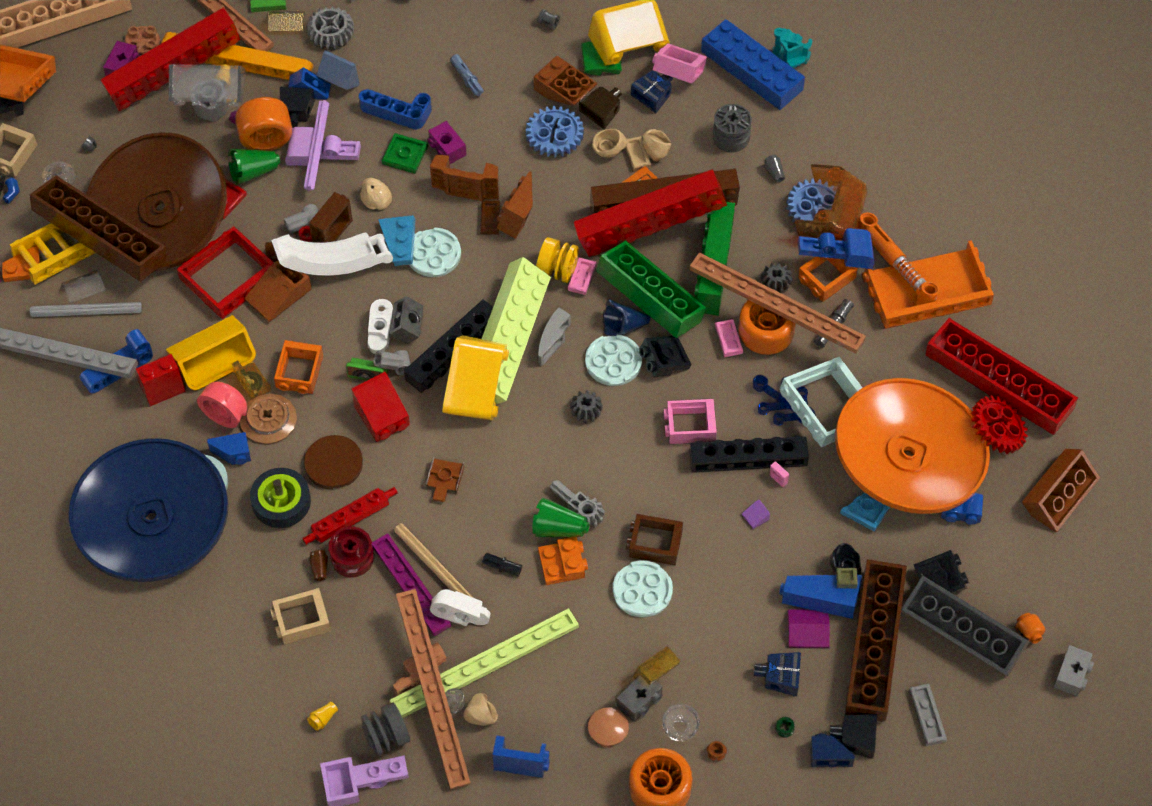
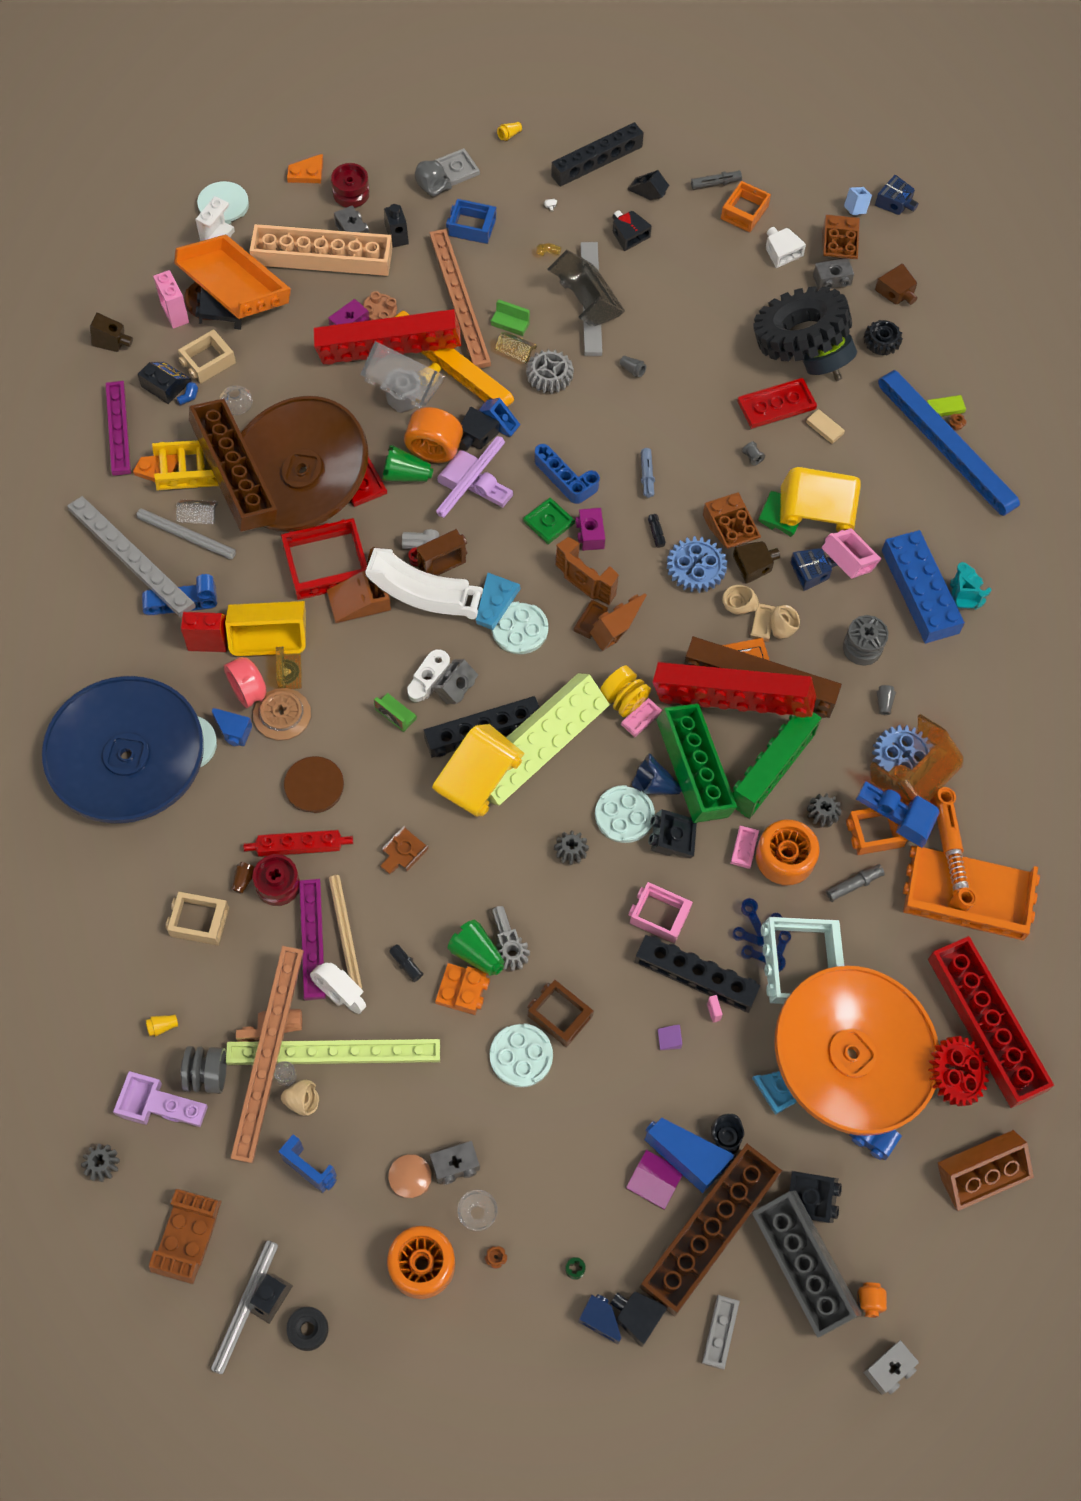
camera: 25 degrees right, 5 degrees up
(90, 144) = (278, 382): dark grey hinge -> none
(280, 497) = (245, 795): wheel -> none
(301, 351) = (336, 658): orange window -> none
(338, 71) = (529, 416): sand blue slope -> none
(375, 194) = (499, 551): tan hair -> none
(380, 407) = (382, 754): red slope -> none
(394, 361) = (422, 716): light grey piece -> none
(503, 119) = (656, 530): none -> black axle
(553, 335) = (580, 762): light grey slope -> none
(657, 665) = (486, 1143): clear yellow panel -> none
(777, 303) = (805, 840): nougat plate -> none
(781, 672) = (601, 1211): dark blue torso -> none
(846, 577) = (716, 1151): olive tile -> none

